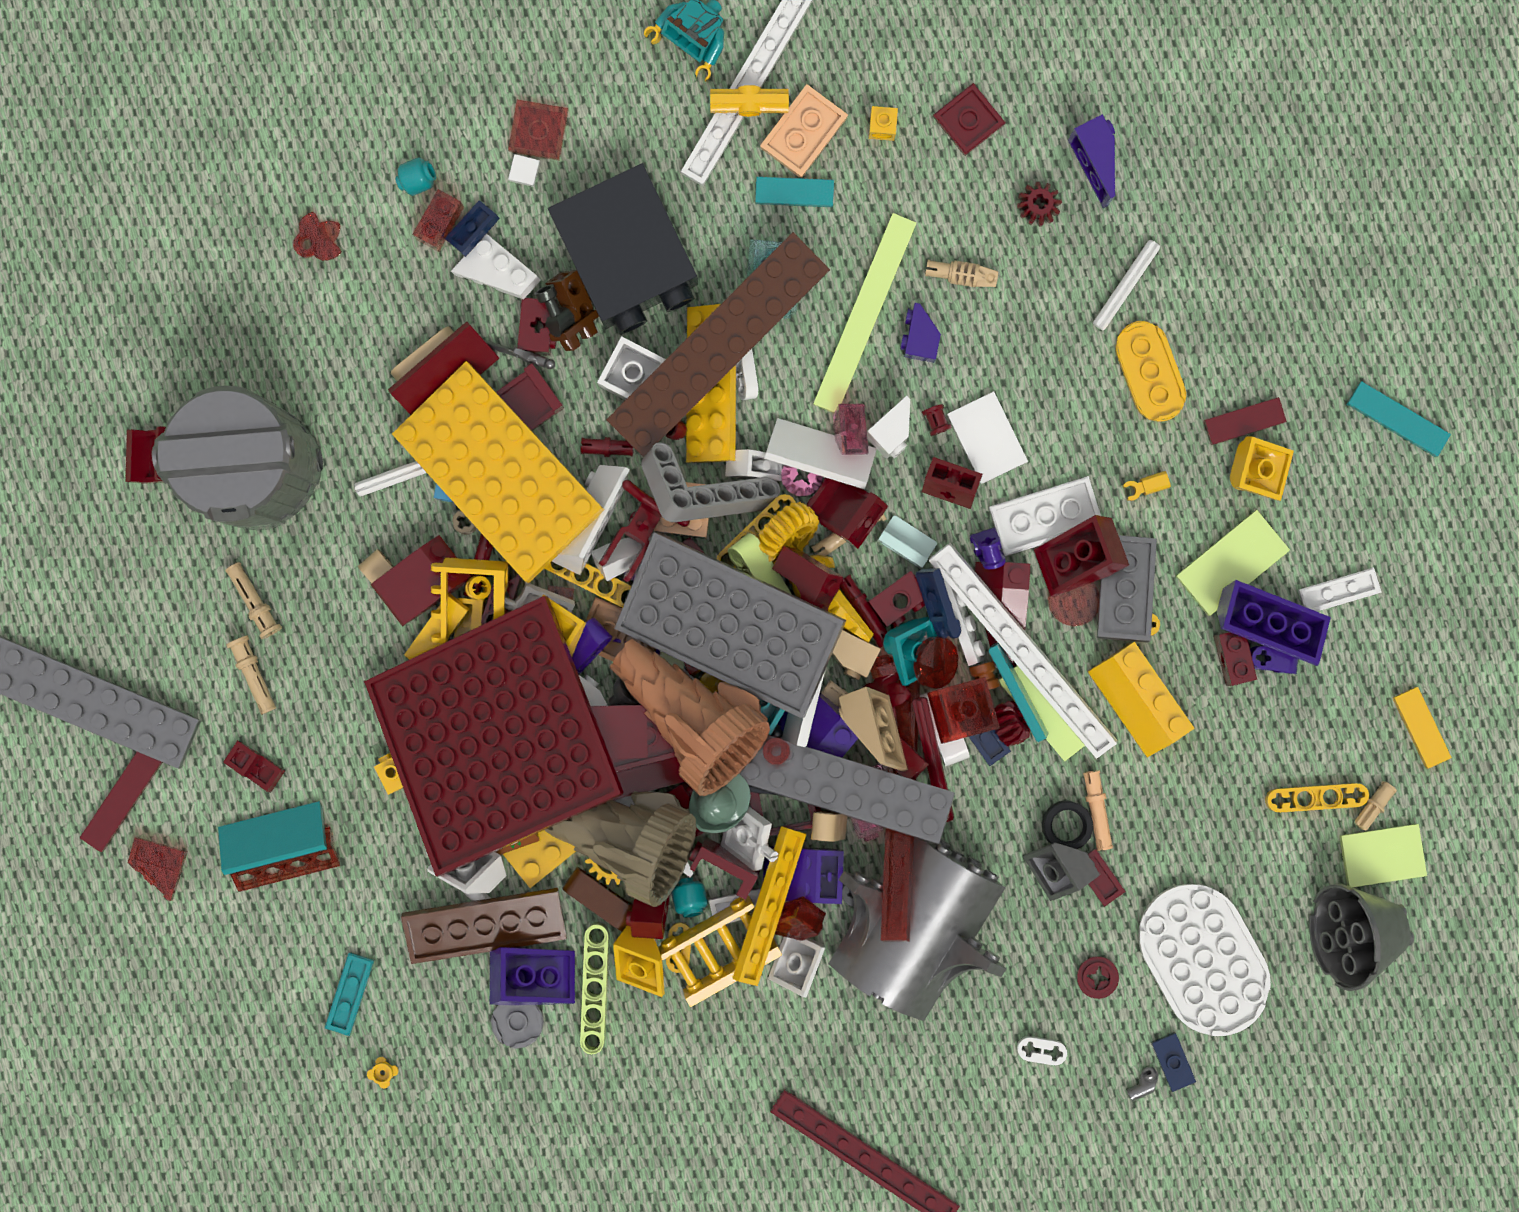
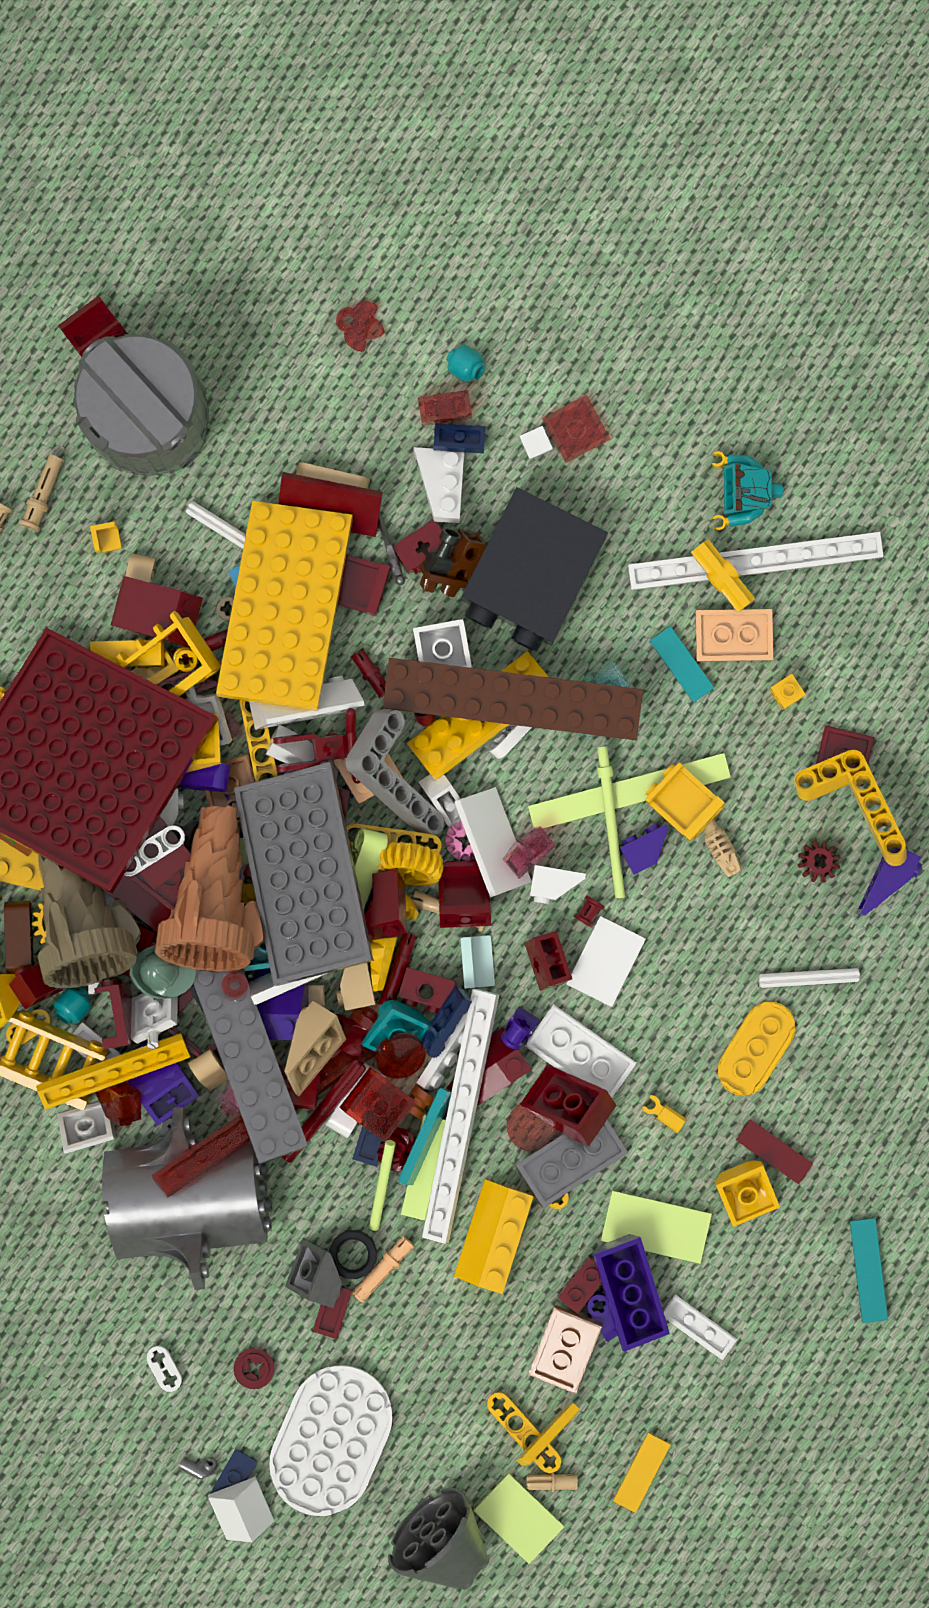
camera: 60 degrees right, 0 degrees up
(329, 576) = (106, 537): none -> yellow panel
(615, 721) = (163, 846): none -> white beam
(835, 319) = (605, 772): none -> yellowish green bar
(908, 273) = (684, 801): none -> yellow panel
(1017, 125) = (865, 798): none -> yellow beam
(1030, 757) = (382, 1185): none -> yellowish green bar
(1207, 1076) = (242, 1510): none -> white slope
(1276, 711) = (565, 1349): none -> tile
(1336, 779) = (548, 1434): none -> yellow tile

